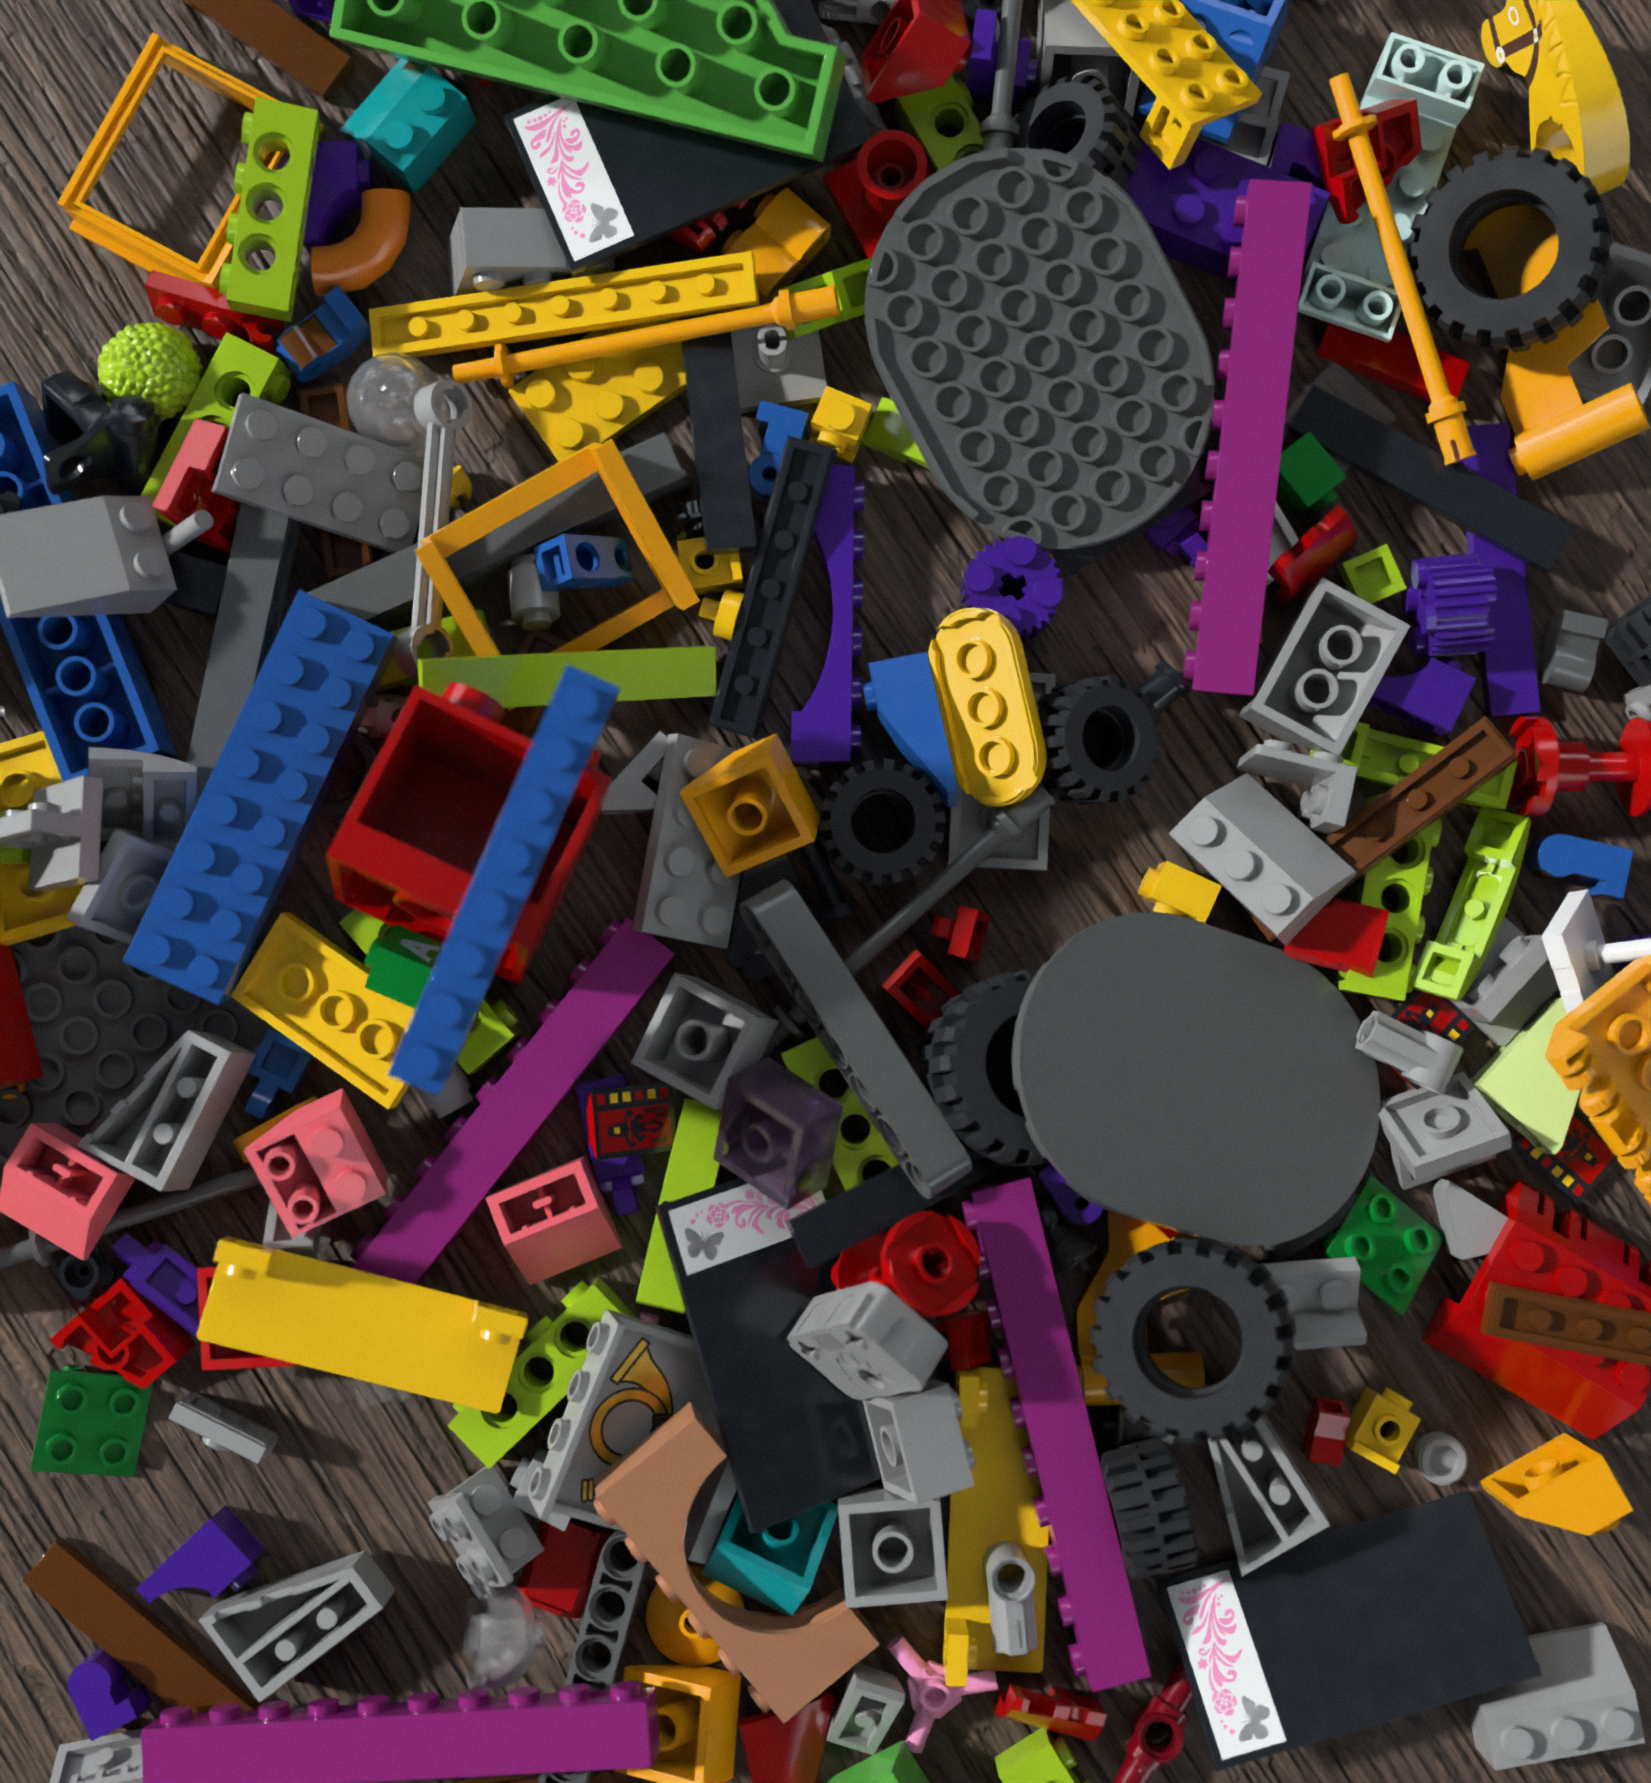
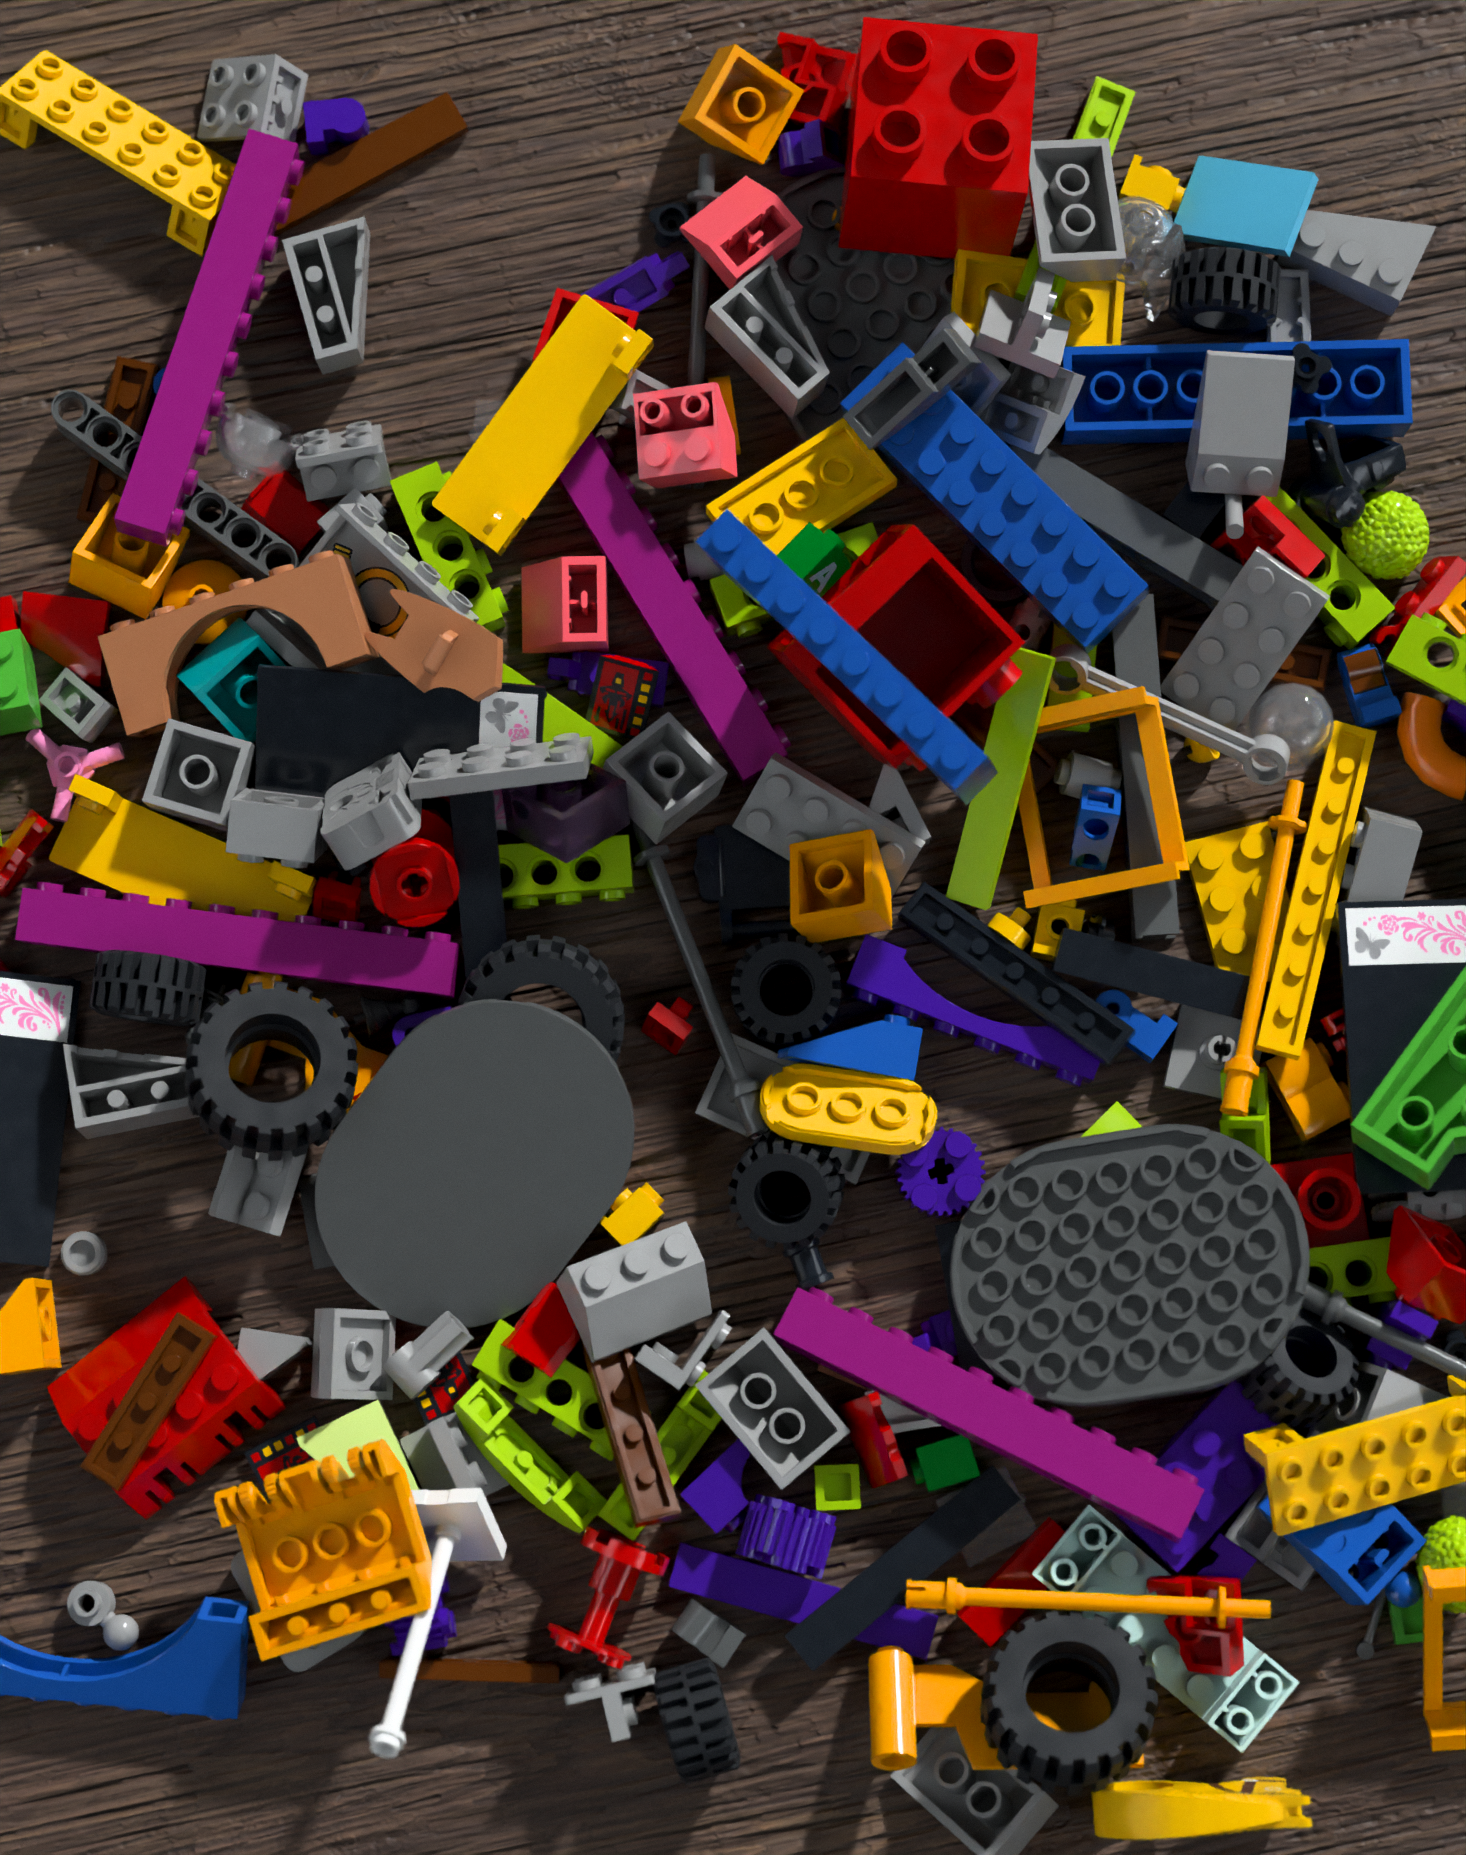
camera: 120 degrees right, 5 degrees down
(90, 1424) = (549, 187): green hinge -> none
(126, 1335) = (607, 238): red slope -> none
(170, 928) = (912, 388): none -> dark grey slope
(209, 1560) = (406, 241): dark purple arch -> none
(224, 1428) = (504, 287): light grey plate -> none
(278, 1066) = (774, 433): blue plate -> none
(658, 1336) = (442, 649): none -> nougat shield
(765, 1218) = (500, 768): none -> light grey plate
(840, 423) = (1134, 1084): yellow brick -> none
(856, 1039) = (617, 897): dark grey beam -> none
(919, 988) = (639, 969): red slope -> none
(1010, 1600) = (117, 853): light grey piece -> none
(1326, 1431) = (145, 1166): red piece -> none
(1365, 1425) = (147, 1217): yellow brick -> none
(1388, 1243) = (277, 1273): green hinge -> none
(1581, 859) = (539, 1553): blue leg -> none

